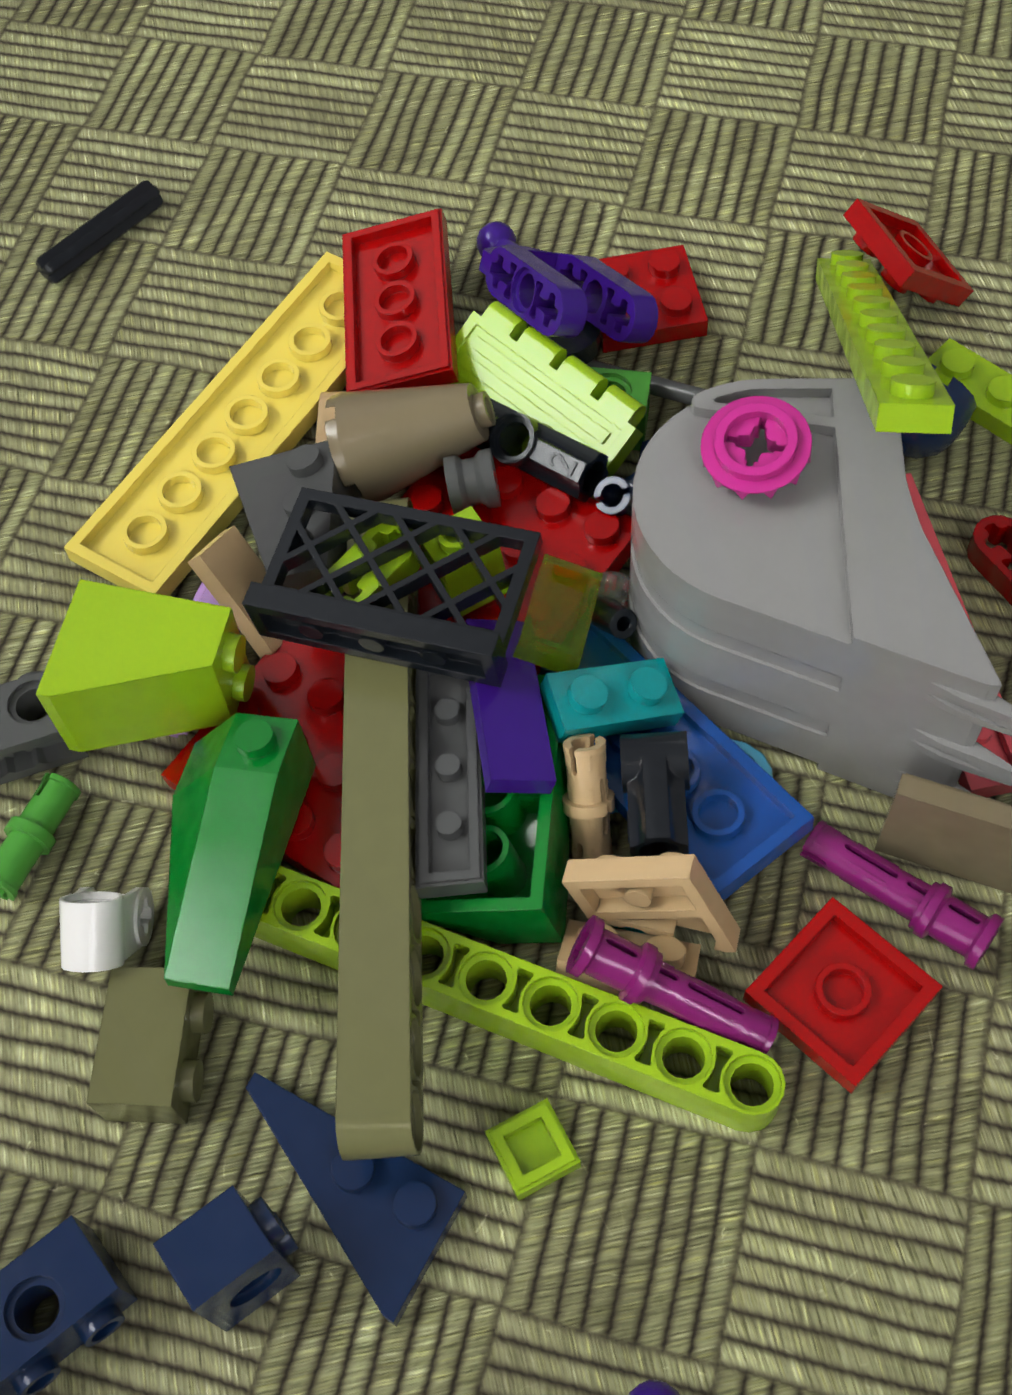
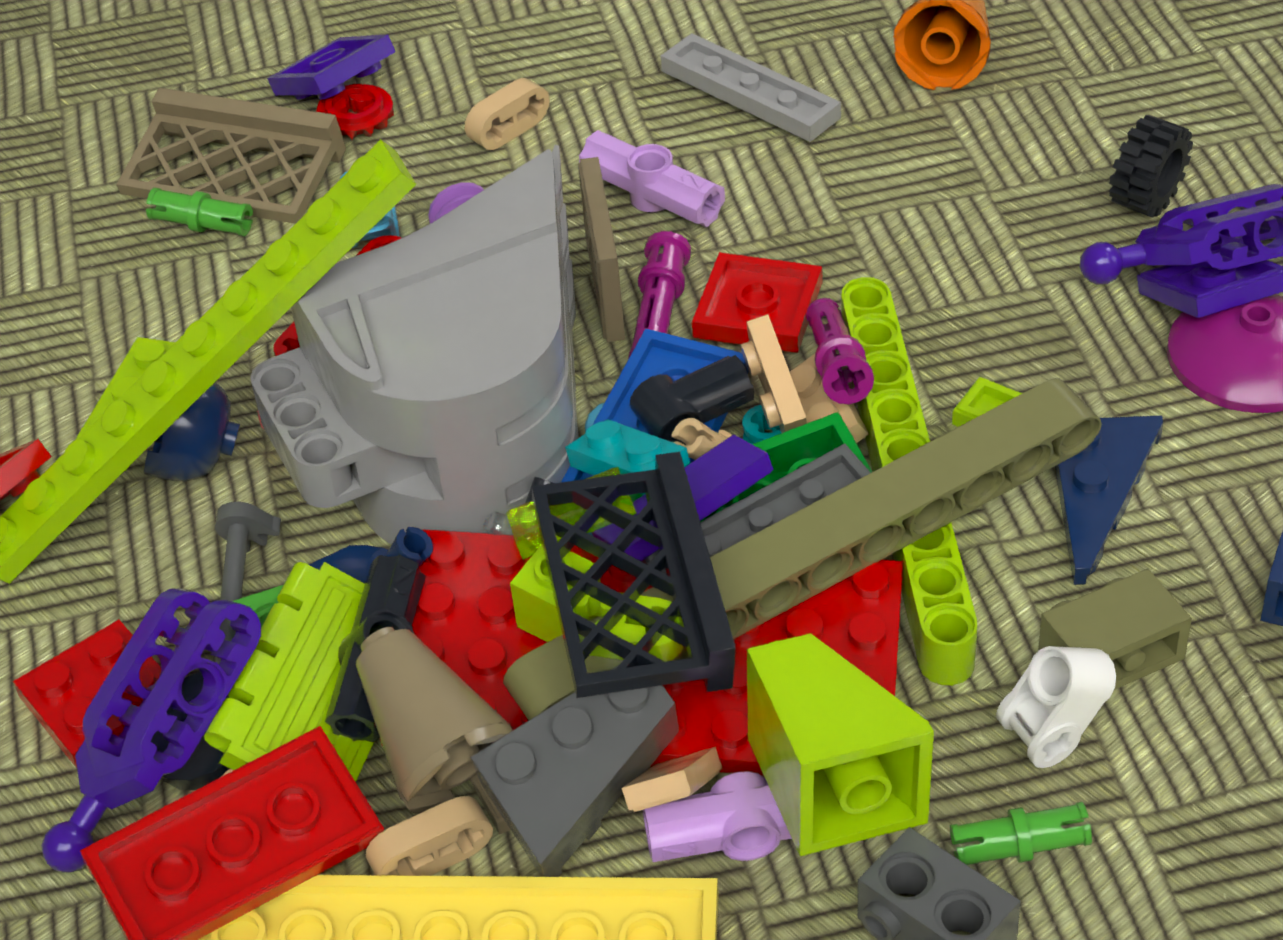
camera: 120 degrees left, 15 degrees down
(228, 843) = (935, 622): green wedge -> none
(229, 1257) = (1208, 479): dark blue brick -> none
(472, 481) = (458, 640): dark grey wheel -> none
(739, 425) = (434, 300): dark pink gear -> none

